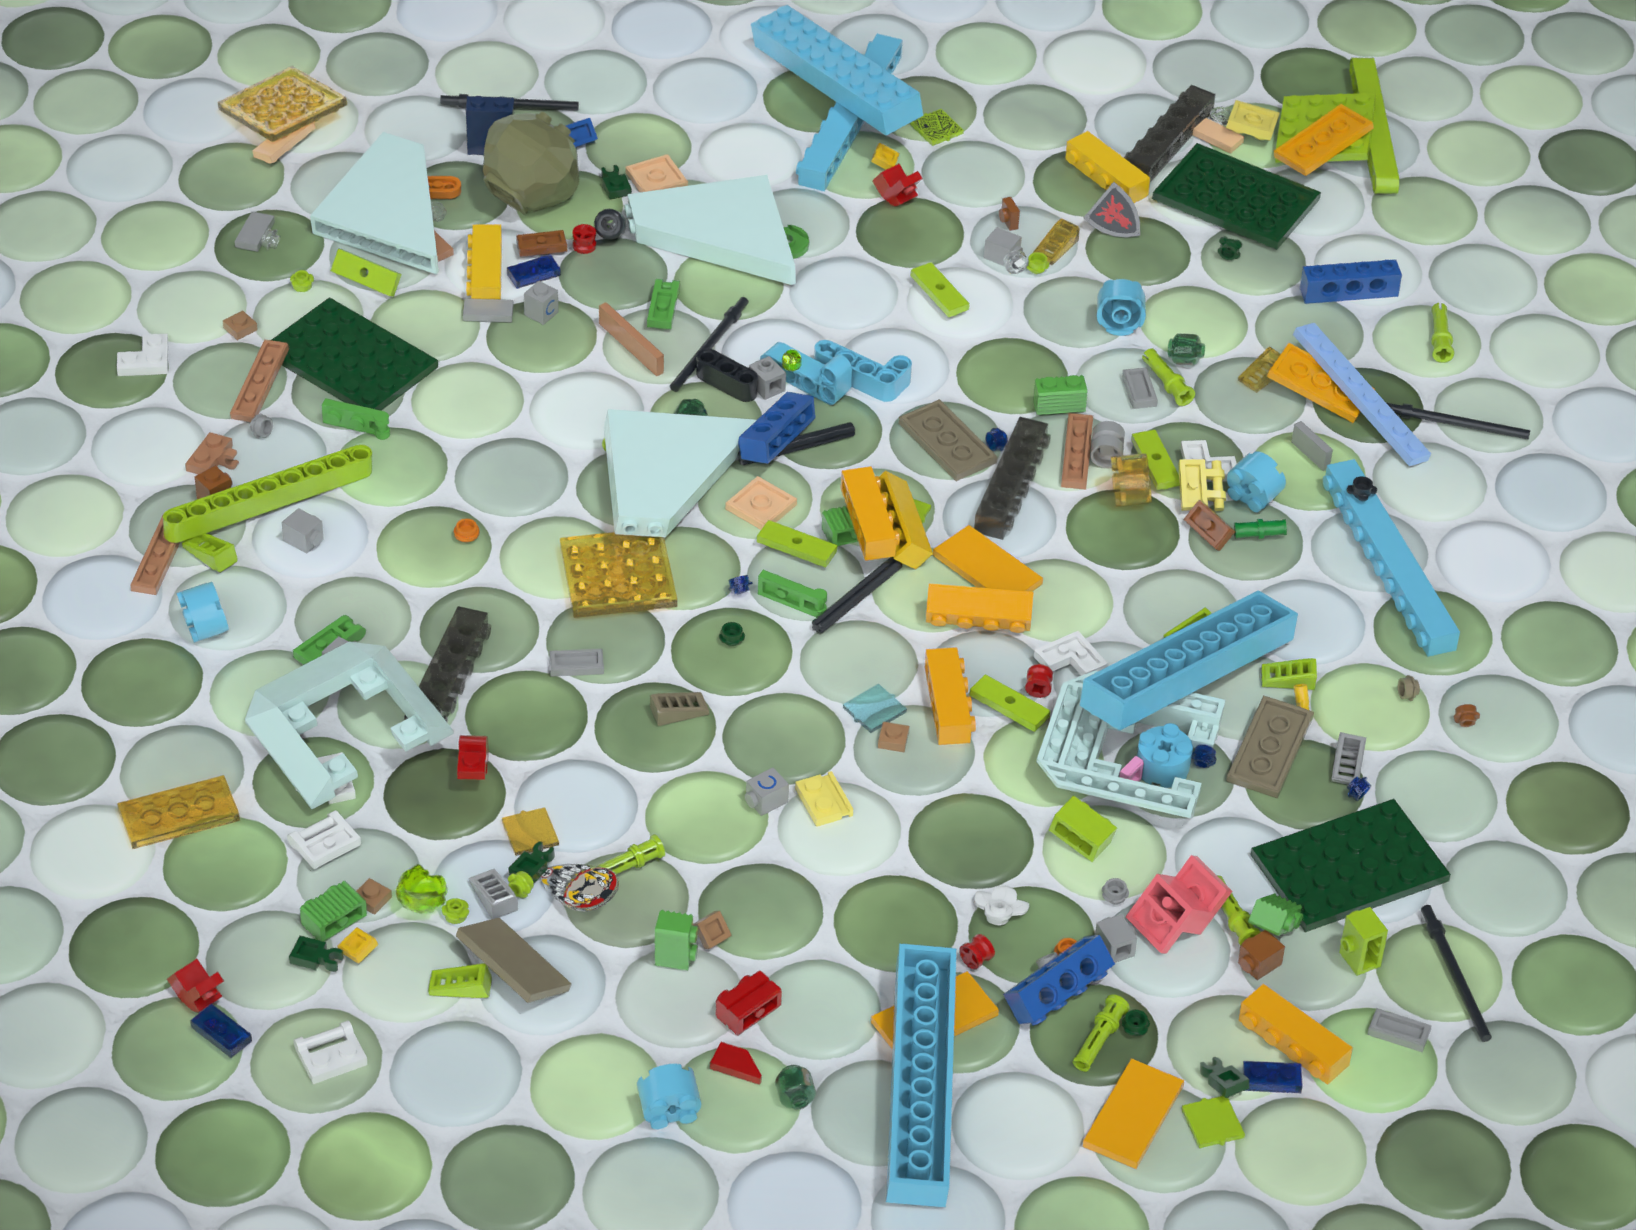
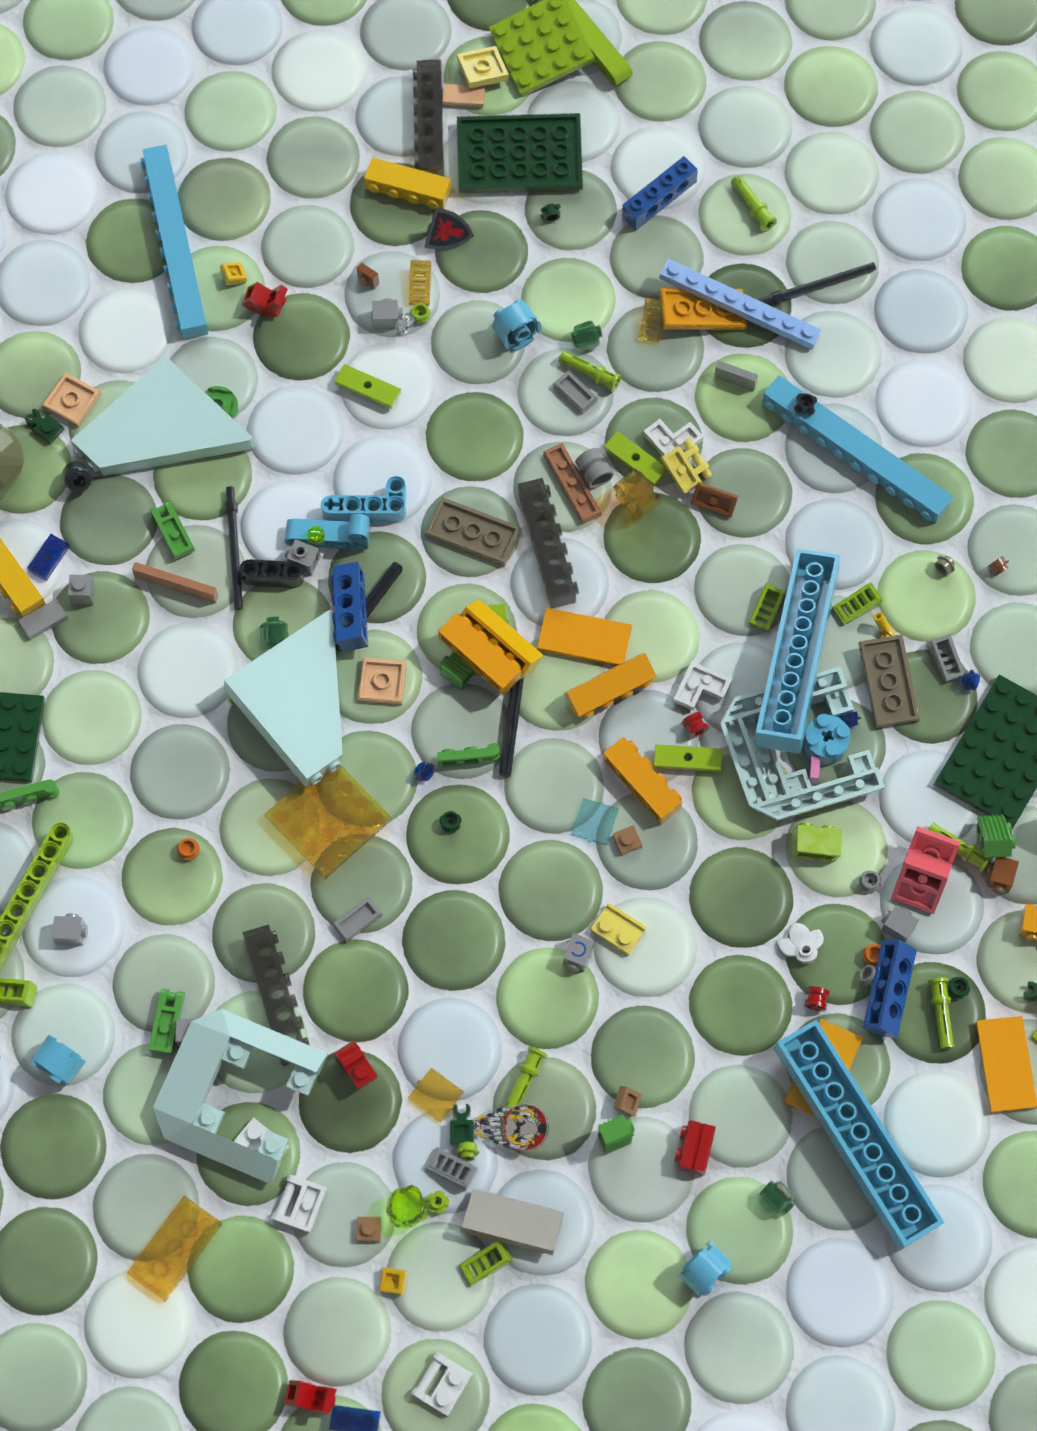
camera: 30 degrees left, 25 degrees up
(312, 952) = (366, 1311): dark green plate -> none
(332, 911) = (355, 1264): bright green brick -> none
(541, 243) = (35, 526): dark orange plate -> none
(584, 238) = (62, 496): red wheel -> none
(665, 710) = (456, 930): dark tan slope -> none
(736, 1063) = (720, 1202): red tile -> none
(797, 543) = (451, 704): lime tile -> none
(837, 70) = (142, 212): medium azure brick -> none
(937, 127) = (247, 214): lime piece -> none
(996, 439) = (509, 511): clear blue plate -> none
(1060, 395) = (528, 440): bright green brick -> none
(1220, 115) = (452, 74): clear tile -> none
(1255, 481) = (723, 440): medium azure brick -> none
(1260, 528) = (750, 478): green pin -> none
(1323, 139) = (553, 62): light orange tile -> none

